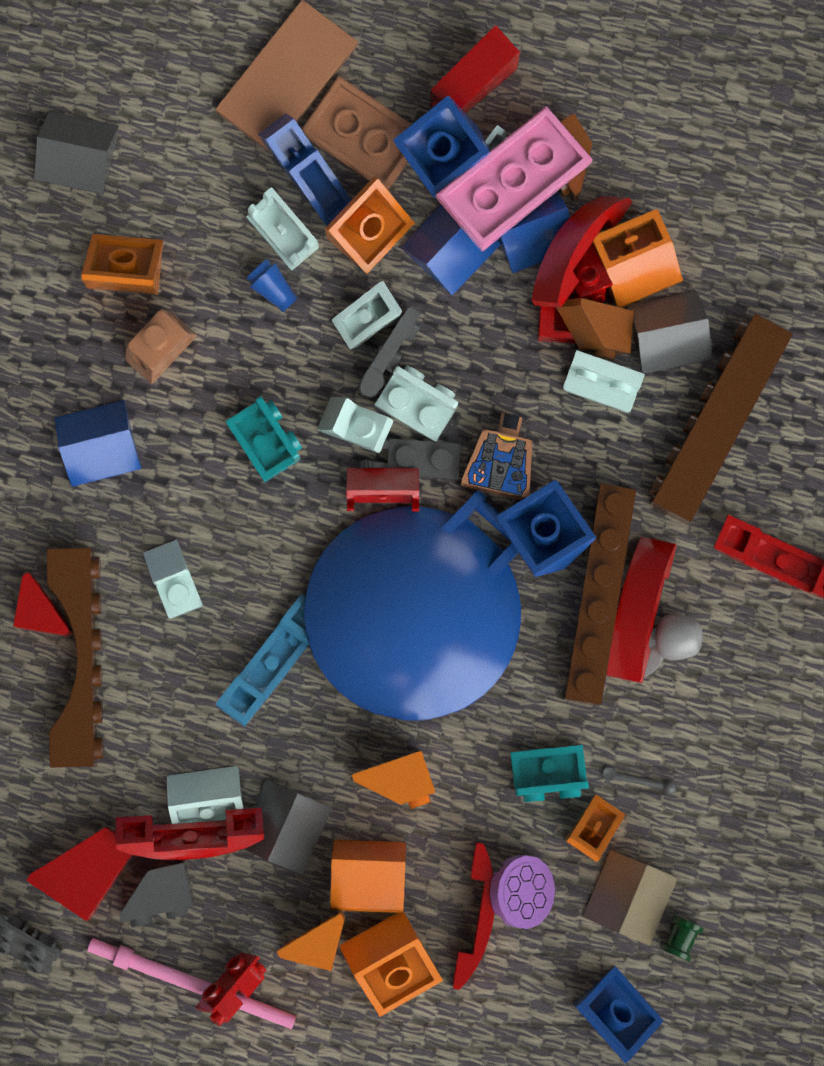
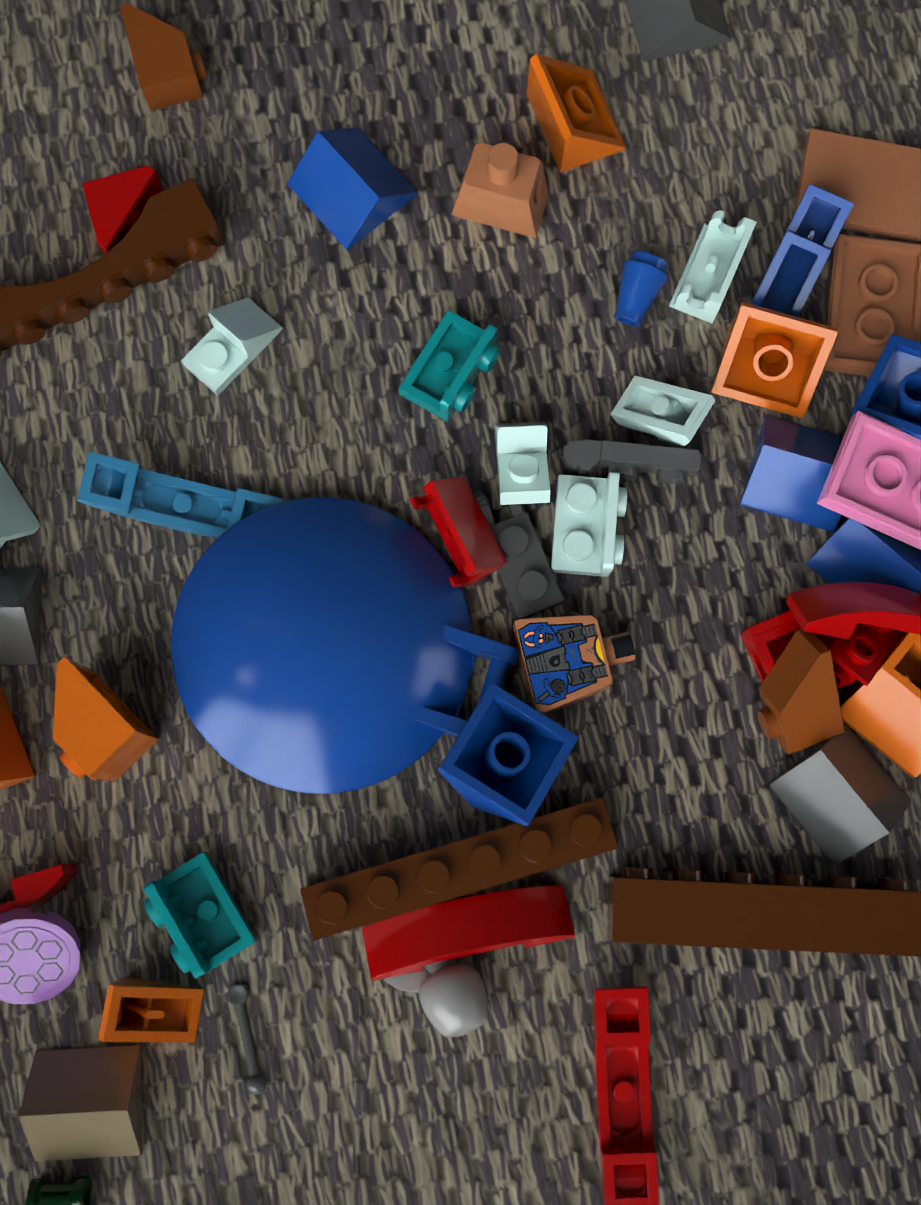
camera: 65 degrees right, 5 degrees down
(603, 381) = (734, 738): light aqua bracket -> none

